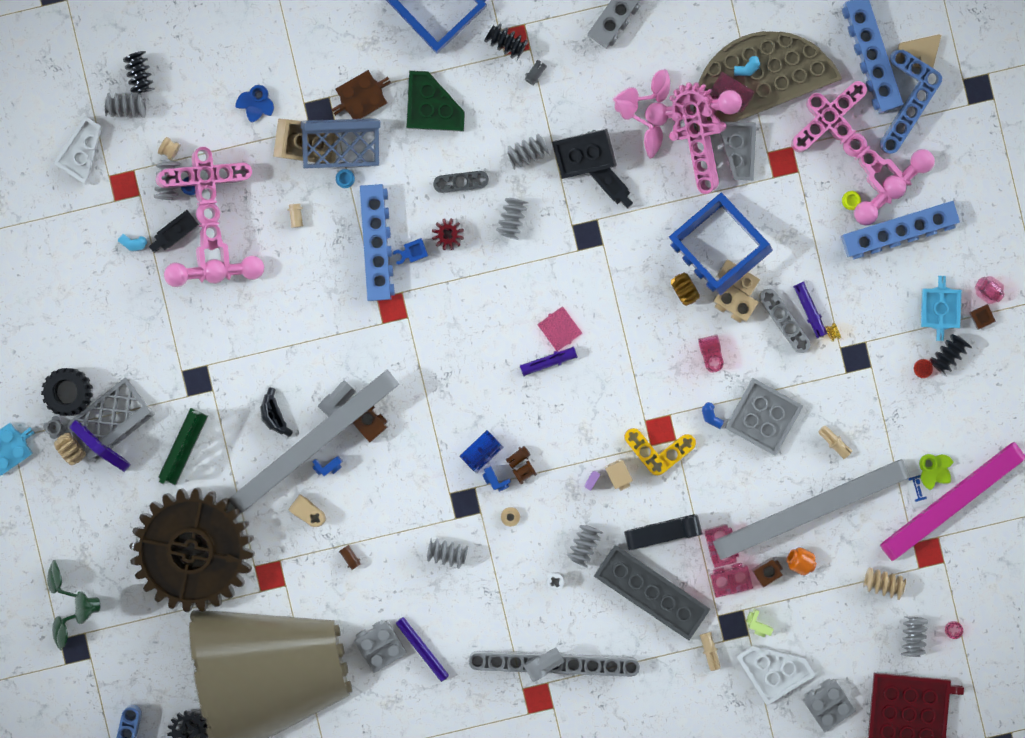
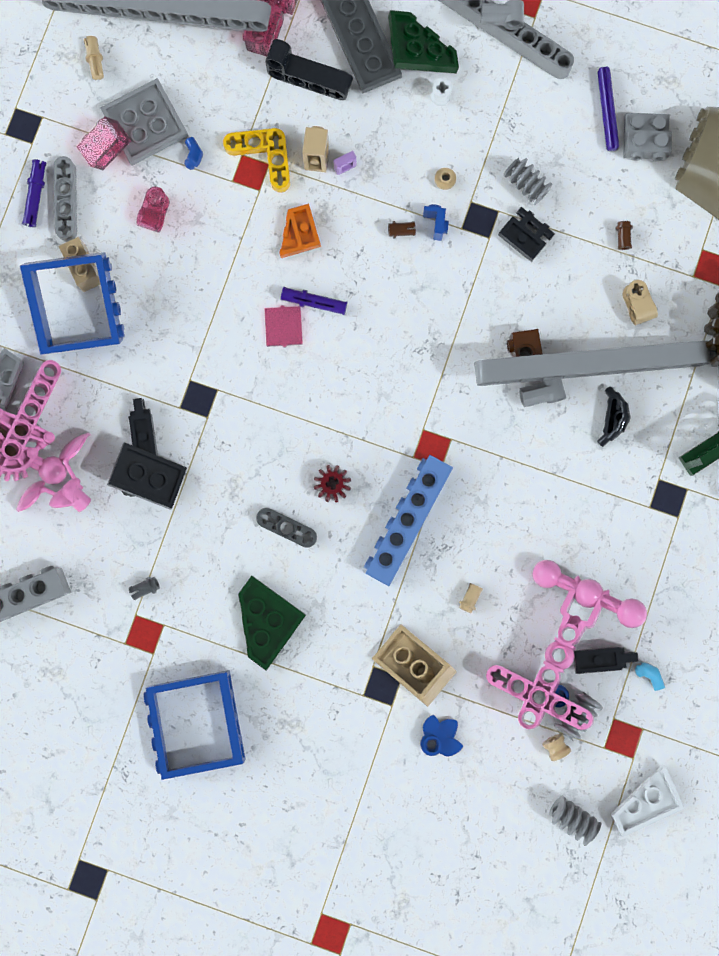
camera: 140 degrees left, 5 degrees down
(138, 73) = (541, 846): black piece -> none
(332, 466) = (590, 331): blue bracket -> none
(340, 126) = (370, 658): sand blue fence -> none
(345, 178) = (398, 604): dark azure plate -> none
(361, 95) = (330, 676): reddish brown plate -> none
(413, 250) = (375, 489): blue plate -> none
(423, 506) = (522, 238): none -> black plate
(481, 451) = (433, 255): clear blue hinge -> none
(506, 41) = (150, 637): black piece -> none
(512, 218) = (259, 459): light grey piece -> none
(524, 472) = (405, 210): reddish brown bush -> none
(527, 150) = (201, 516): light grey piece -> none
(583, 545) = (391, 106): light grey piece -> none
(593, 406) = (300, 232): none -> orange wing
(594, 606) = (419, 46): none -> dark green plate
(685, 289) = (137, 284): pearl gold gear -> none
(736, 298) = (99, 243): tan brick -> none
(780, 379) = (103, 143): none -> clear pink brick
(833, 332) = (25, 158): clear yellow bush -> none

